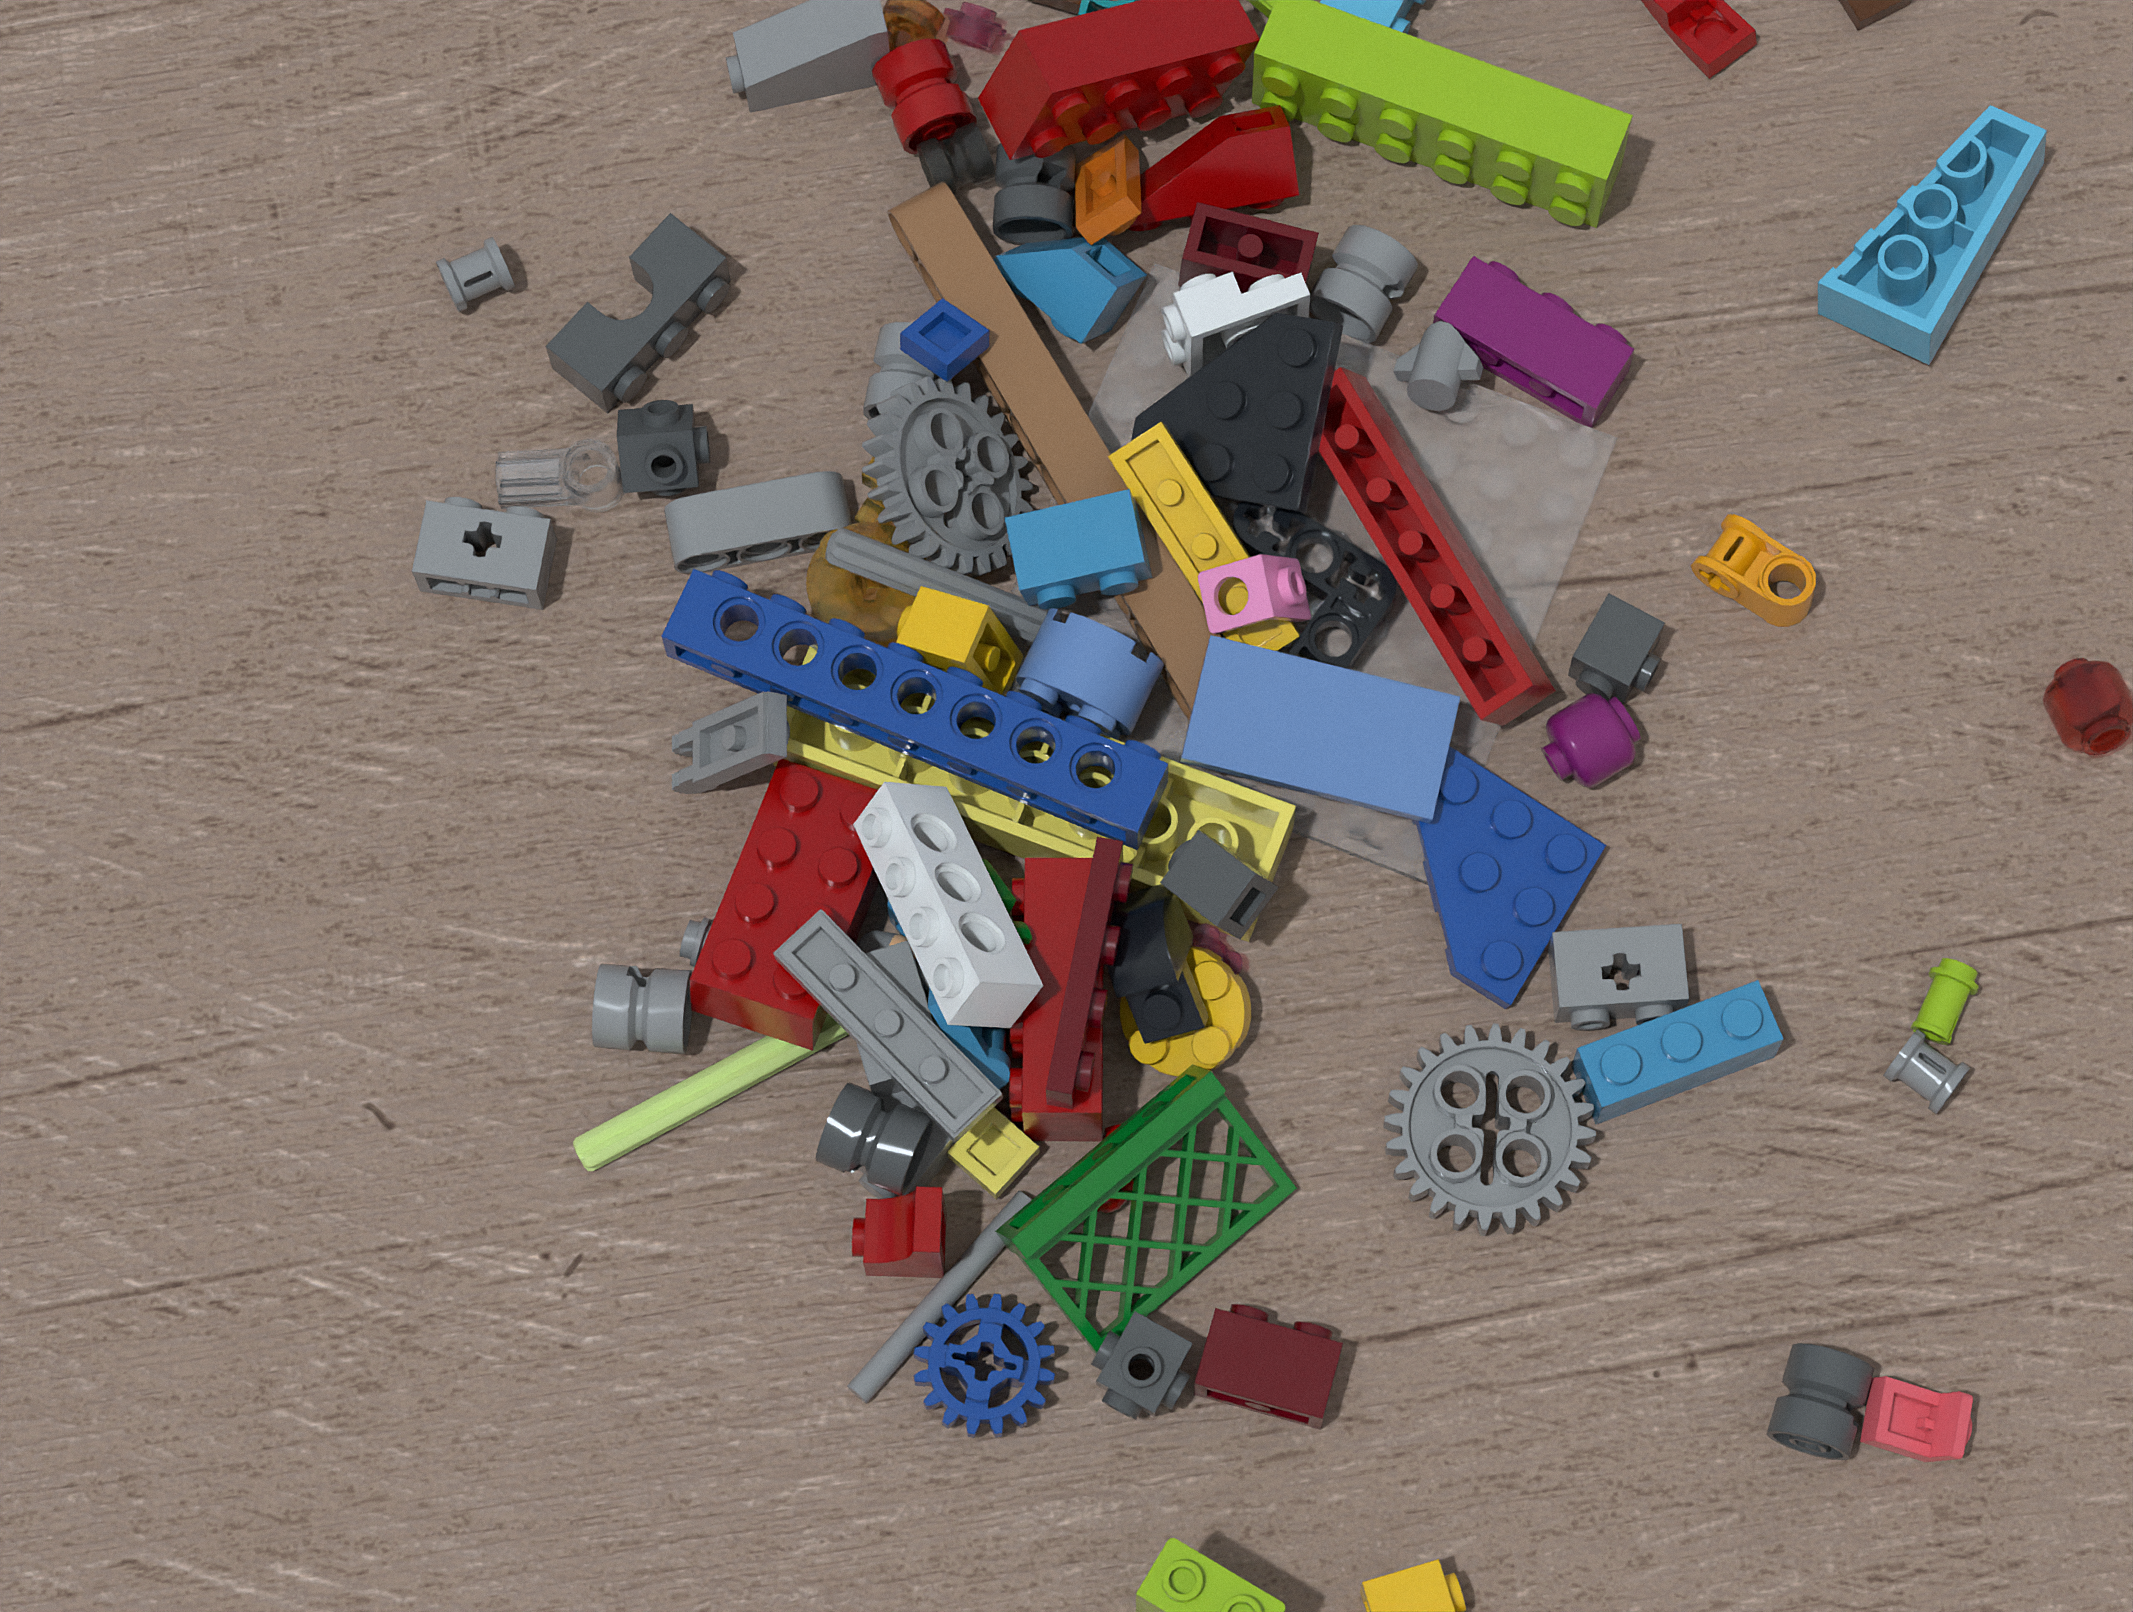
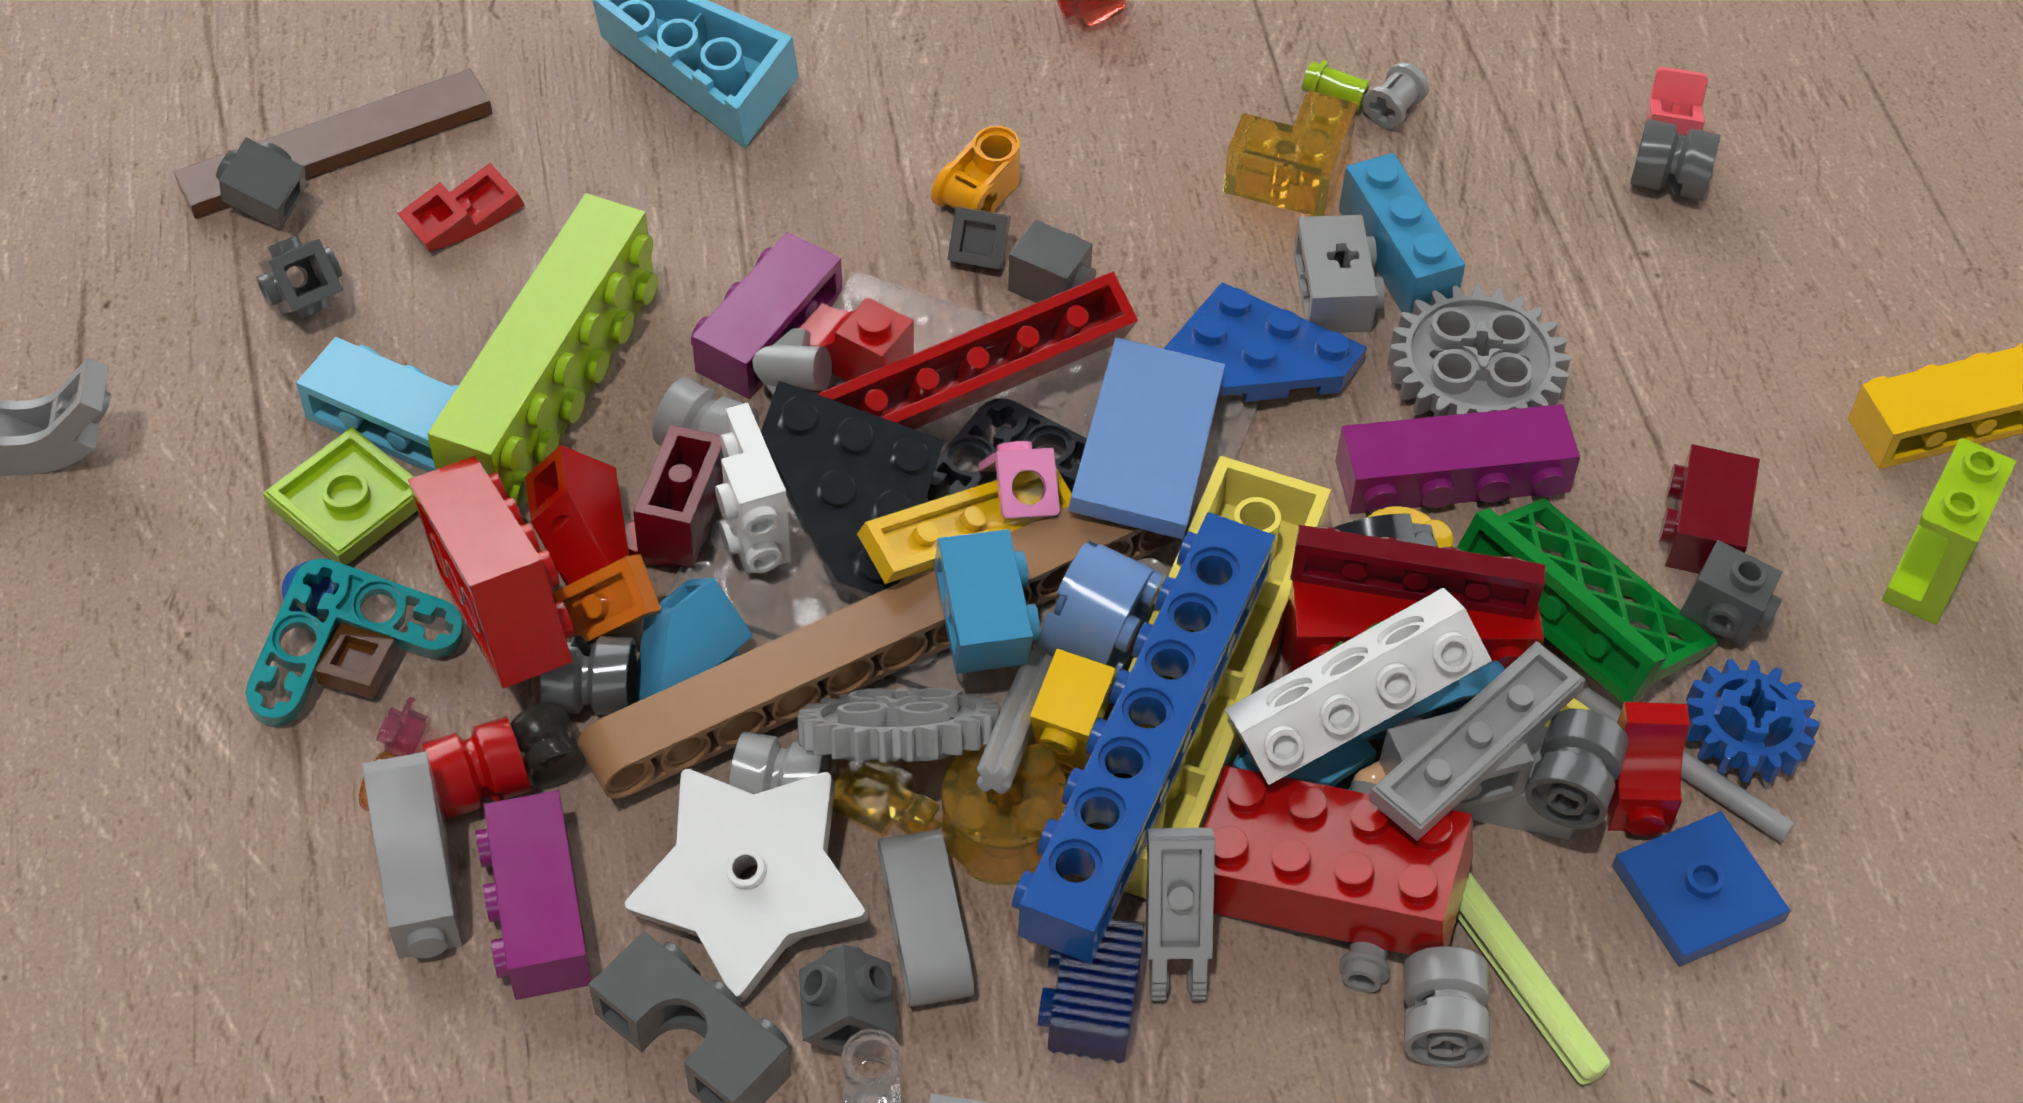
camera: 95 degrees left, 20 degrees down
(662, 689) = (1094, 1001): none -> clear blue brick
(786, 165) = (533, 896): none -> magenta brick
(790, 1291) = (1700, 888): none -> blue plate
(792, 351) = (753, 919): none -> white plate
(944, 340) = (761, 713): blue plate -> none
(1218, 884) = (1314, 484): dark grey brick -> none
(1338, 1089) = (1457, 459): none -> magenta brick
(1473, 432) = (862, 337): none -> red arch
(1590, 740) = (1141, 275): magenta head -> none
(1659, 570) = (979, 237): none -> dark grey plate
(1799, 952) = (1292, 163): none -> clear yellow brick

